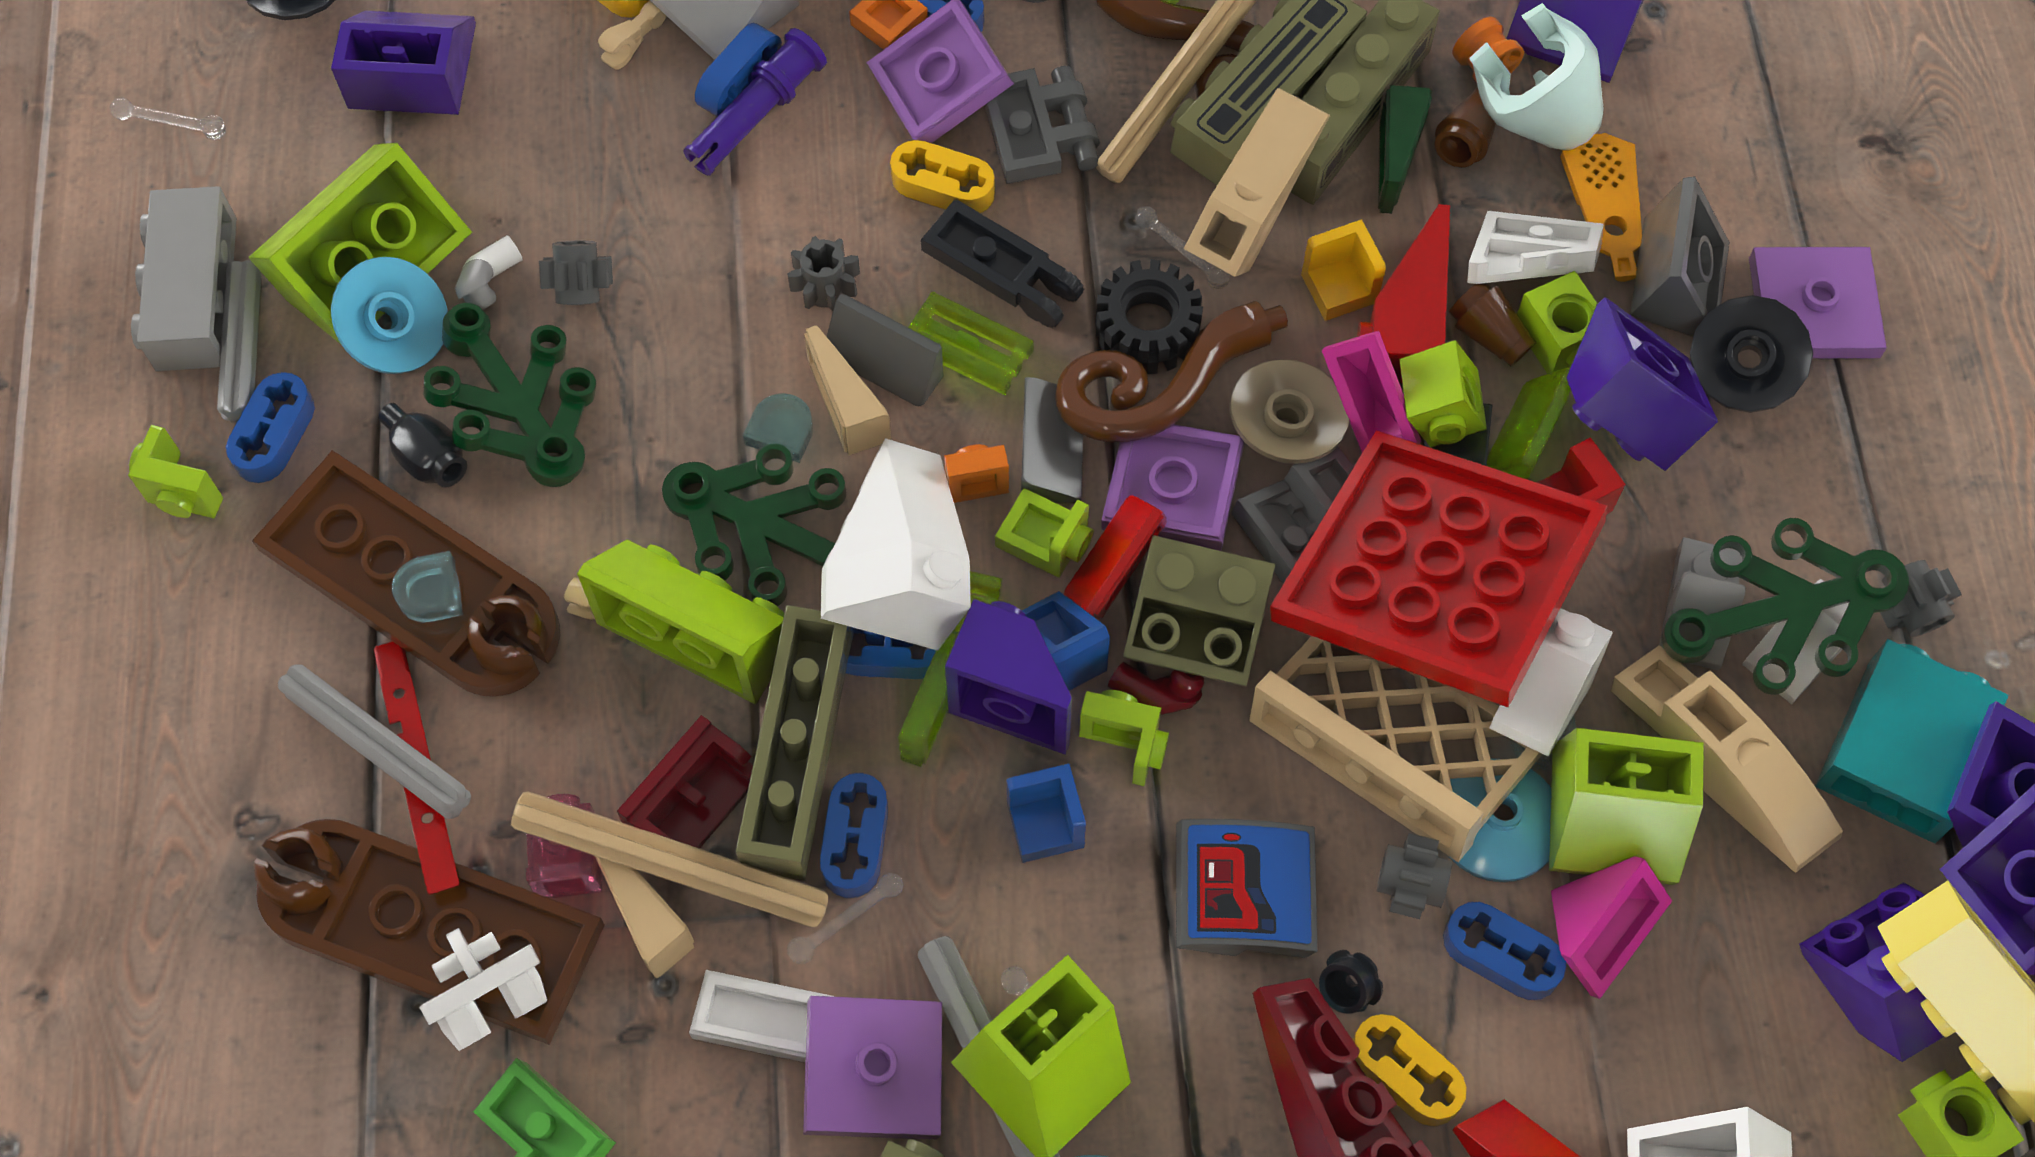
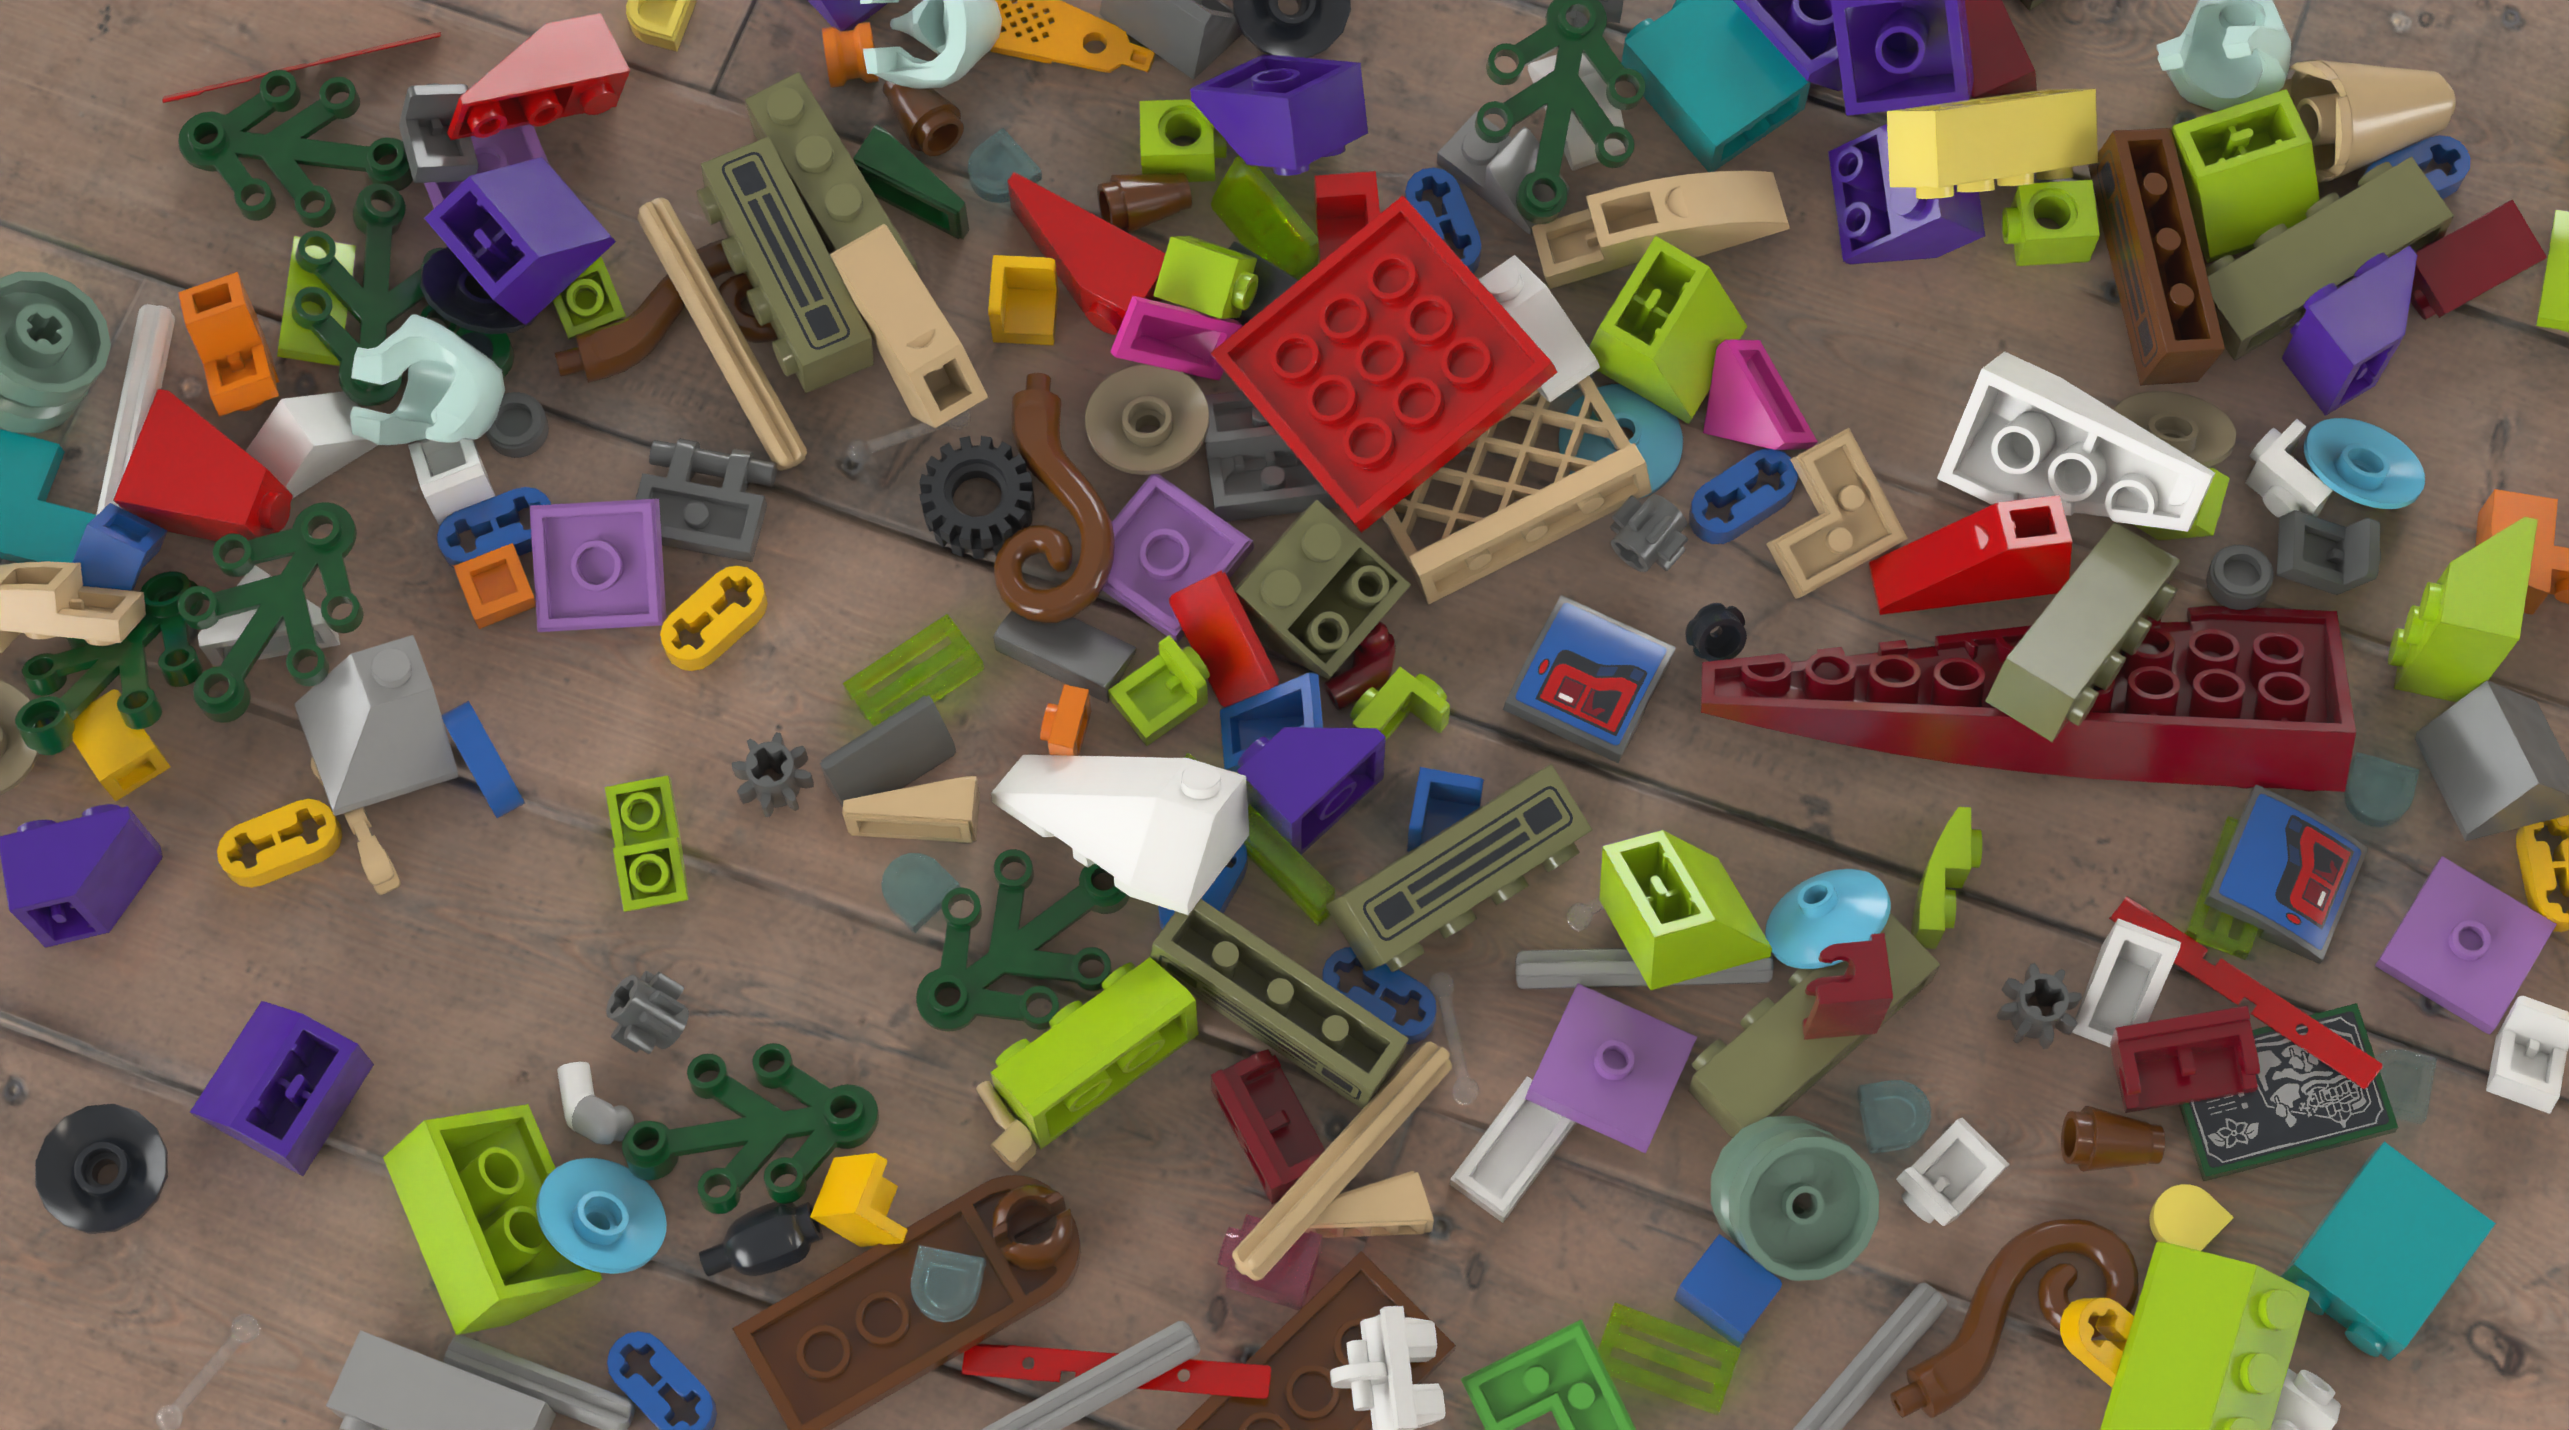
camera: 65 degrees left, 5 degrees up
(476, 495) = (858, 1200): none -> yellow panel
(733, 215) = (647, 843): none -> lime slope
(771, 84) = (518, 735): dark purple pin -> none
(993, 843) = (1458, 869): none -> olive brick
(1000, 262) = (842, 606): black hinge -> none
(1418, 1058) = (1806, 612): yellow beam -> none
(1467, 207) = (995, 162): none -> clear light blue tile
(1532, 247) = (1088, 124): white wing -> none
(1534, 1062) = (1851, 522): none -> tan tile
(1627, 582) = (1455, 213): none -> blue beam

